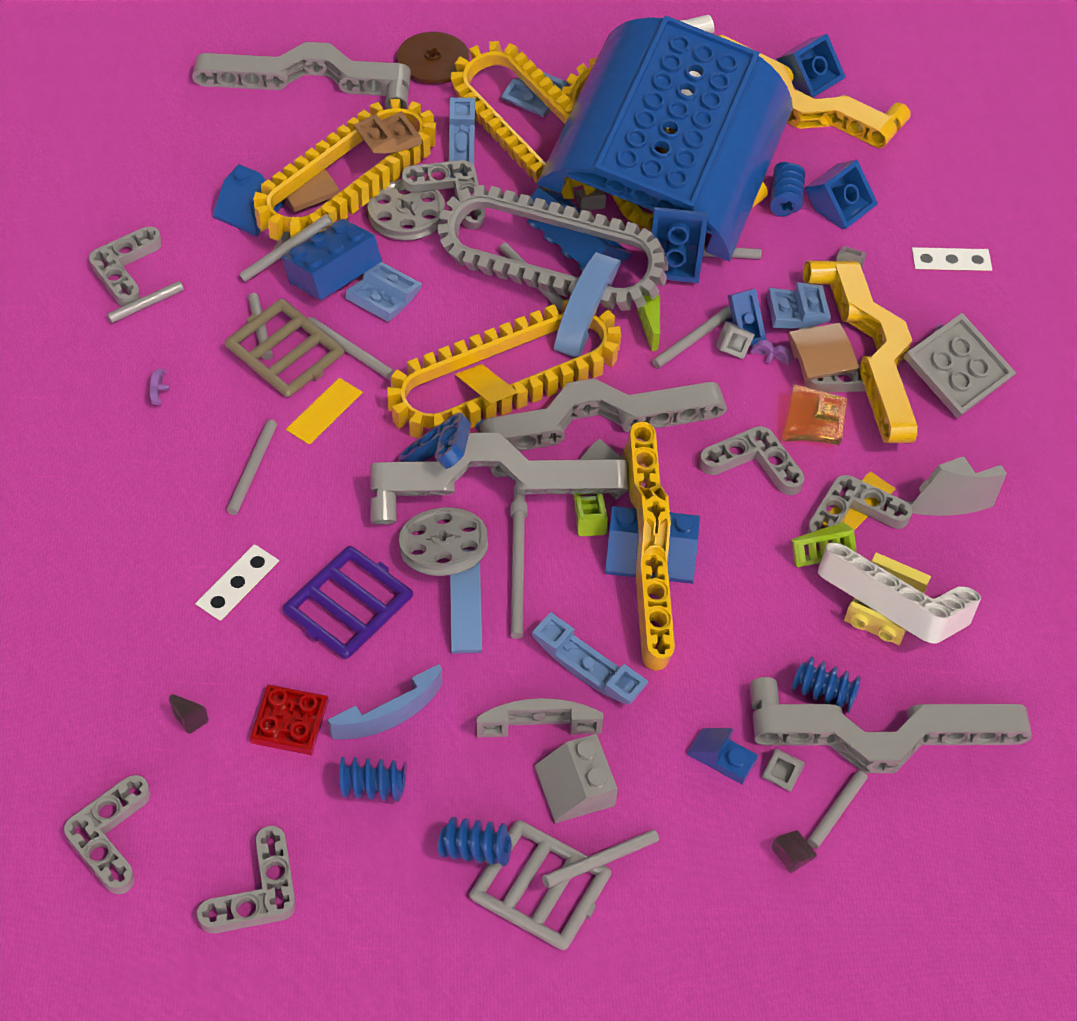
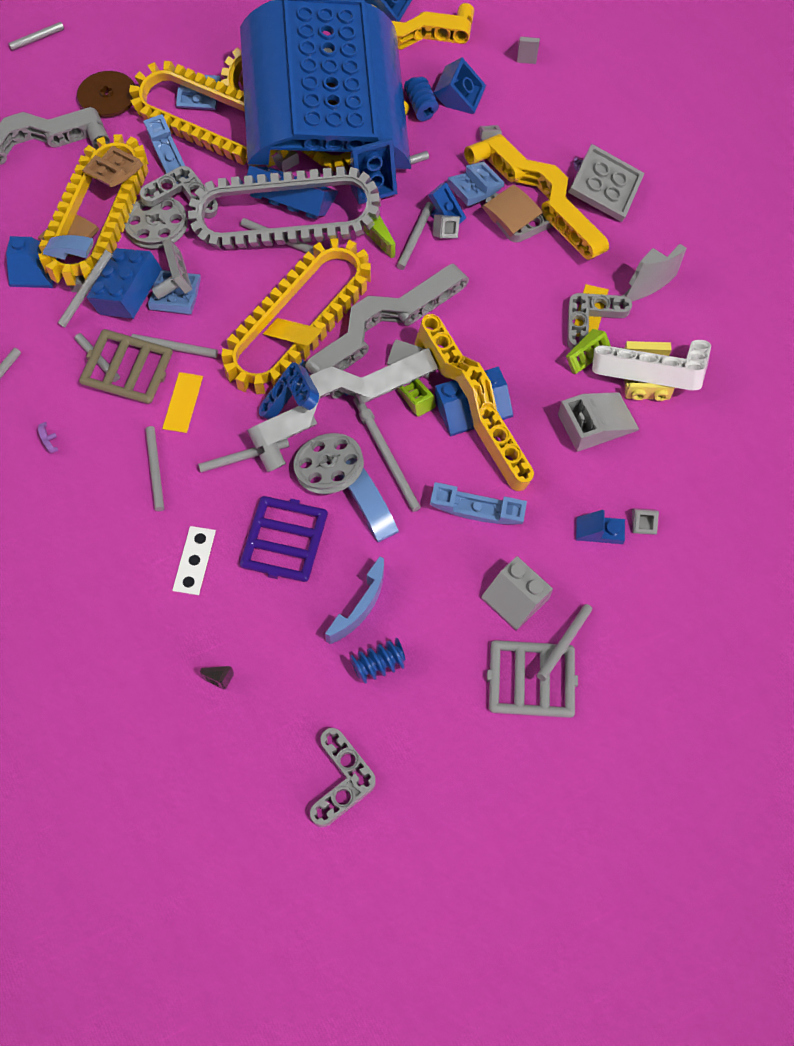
camera: 25 degrees left, 10 degrees up
(97, 827) = (201, 789): light grey beam -> none
(289, 719) = (292, 645): red tile -> none
(293, 195) = (68, 244): none -> medium blue slope
(348, 493) = (236, 457): none -> light grey bar
(395, 269) = (178, 270): none -> light grey piece
(475, 842) = (476, 671): blue piece -> none
(539, 711) = (492, 548): light grey slope -> none
(584, 303) = (332, 242): medium blue slope -> none
(752, 450) = (501, 302): light grey beam -> none
(765, 347) = (469, 223): medium lavender piece -> none
(790, 625) = (596, 419): none -> light grey slope
(793, 850) = (681, 574): clear smoke slope -> none
(814, 416) = (530, 260): plate -> none
(827, 683) = (644, 447): blue piece -> none
(837, 809) = (693, 532): light grey bar -> none
(883, 751) = (697, 481): light grey beam -> none
(951, 182) = (528, 50): none -> slope
(952, 259) = (556, 107): white sticker -> none

